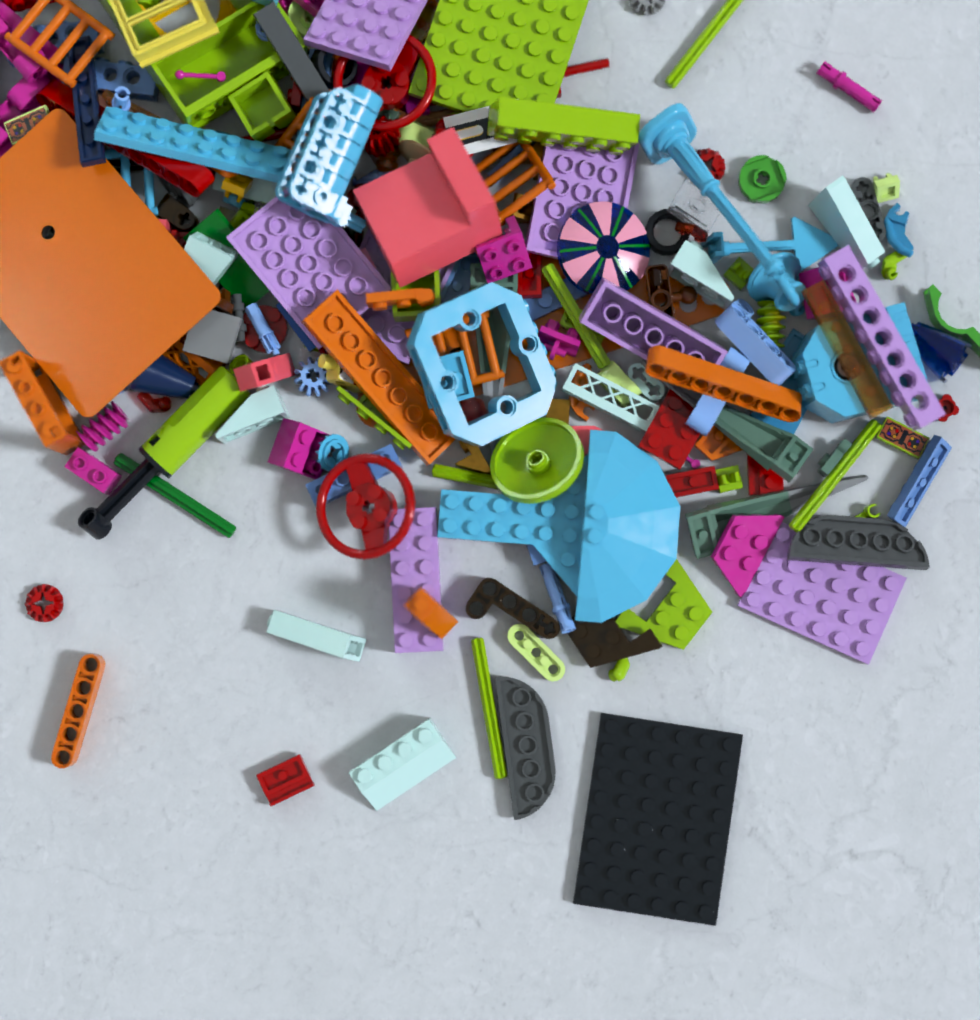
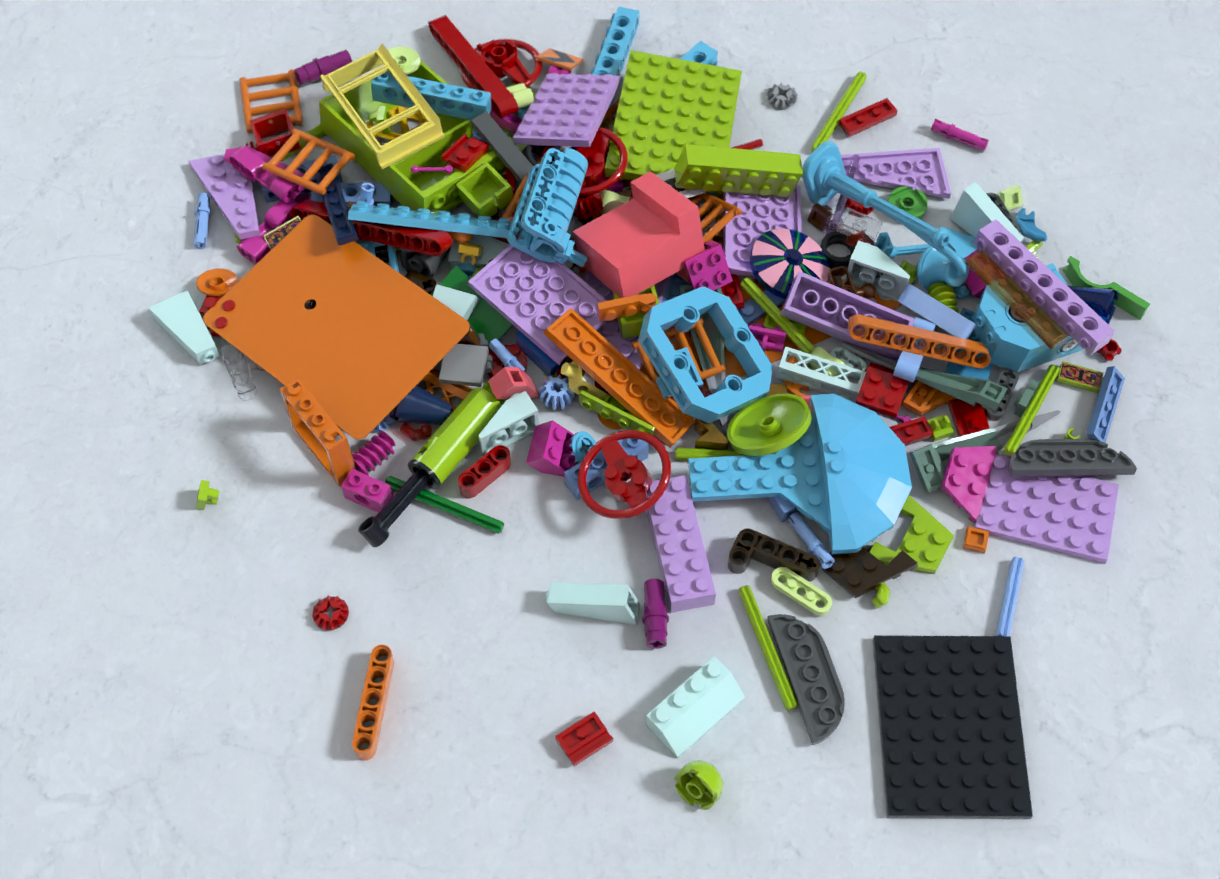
camera: 15 degrees left, 25 degrees down
(210, 464) = (483, 480): none -> red beam
(242, 54) = (464, 153): none -> red plate
(378, 657) = (655, 614): none -> magenta piece
(393, 845) = (699, 784): none -> lime cylinder
(431, 613) = (699, 550): orange slope -> none
(655, 183) = (820, 216): none -> reddish brown tile
(668, 196) = (832, 225): none -> clear purple piece
(735, 618) = (975, 539): none -> orange tile
(744, 45) = (868, 117): none -> red plate
(754, 690) = (1010, 597): none -> light blue axle
(765, 128) = (909, 168): none -> lavender wing
(818, 445) = (1004, 403): none -> dark grey beam

